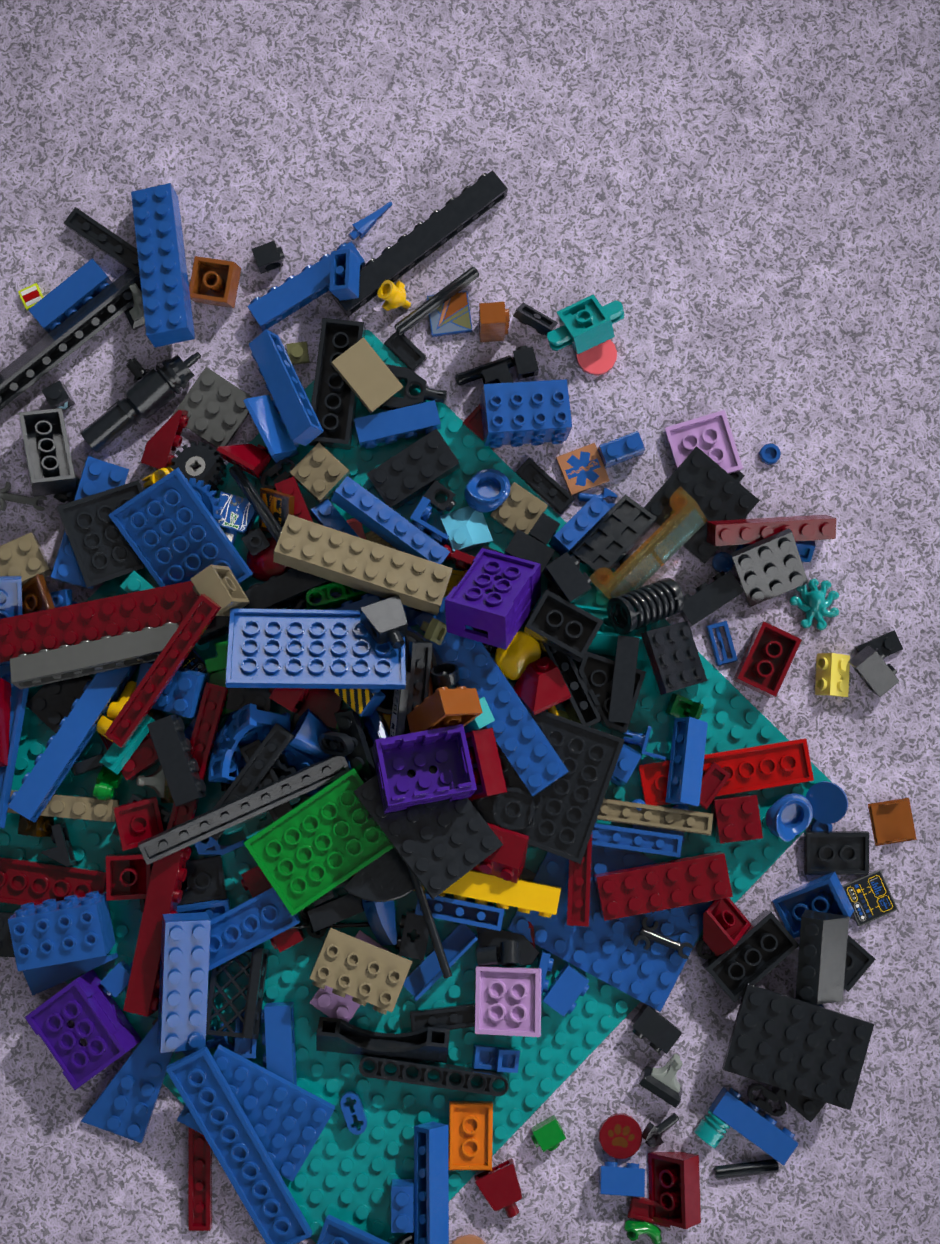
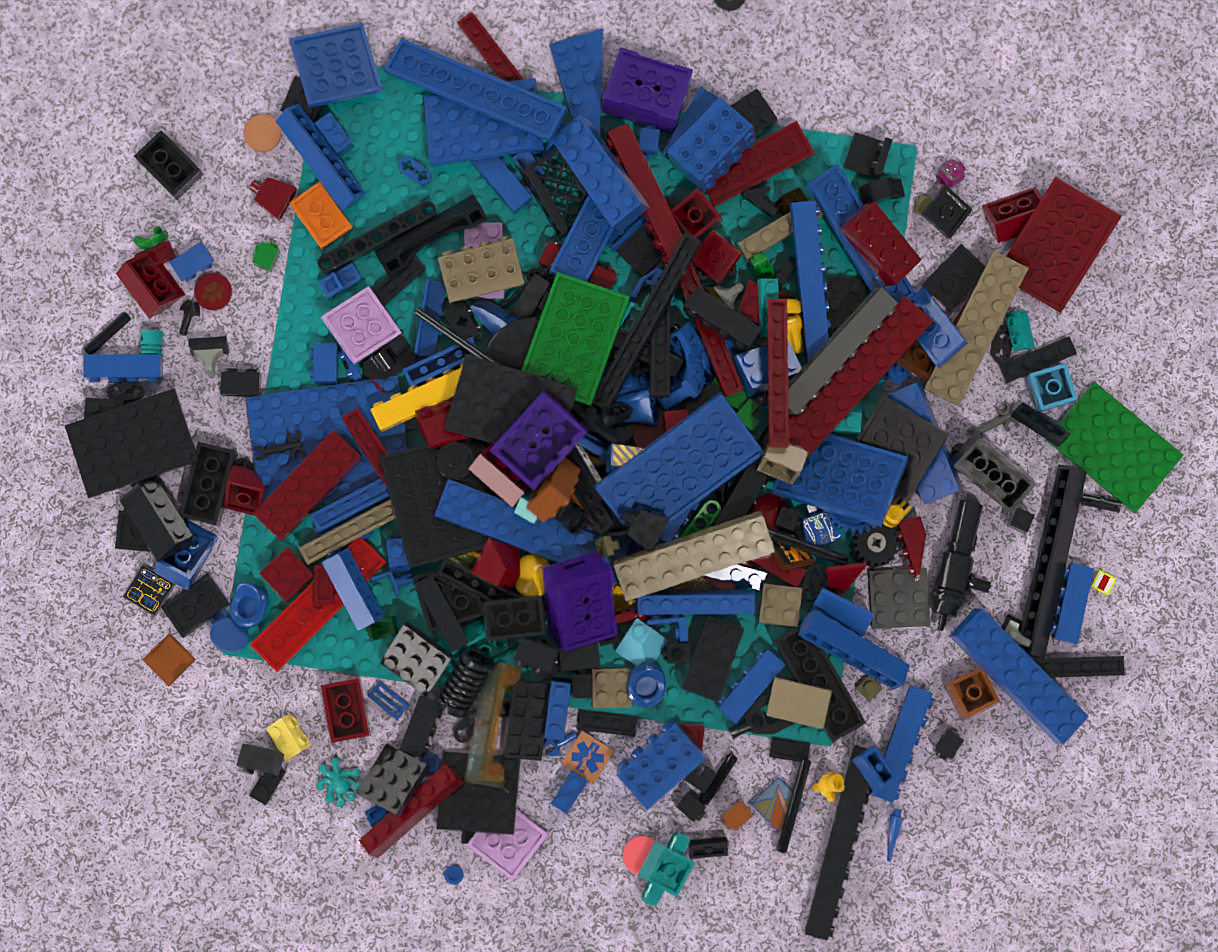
camera: 150 degrees right, 0 degrees up
(674, 573) = (462, 725): none -> black beam

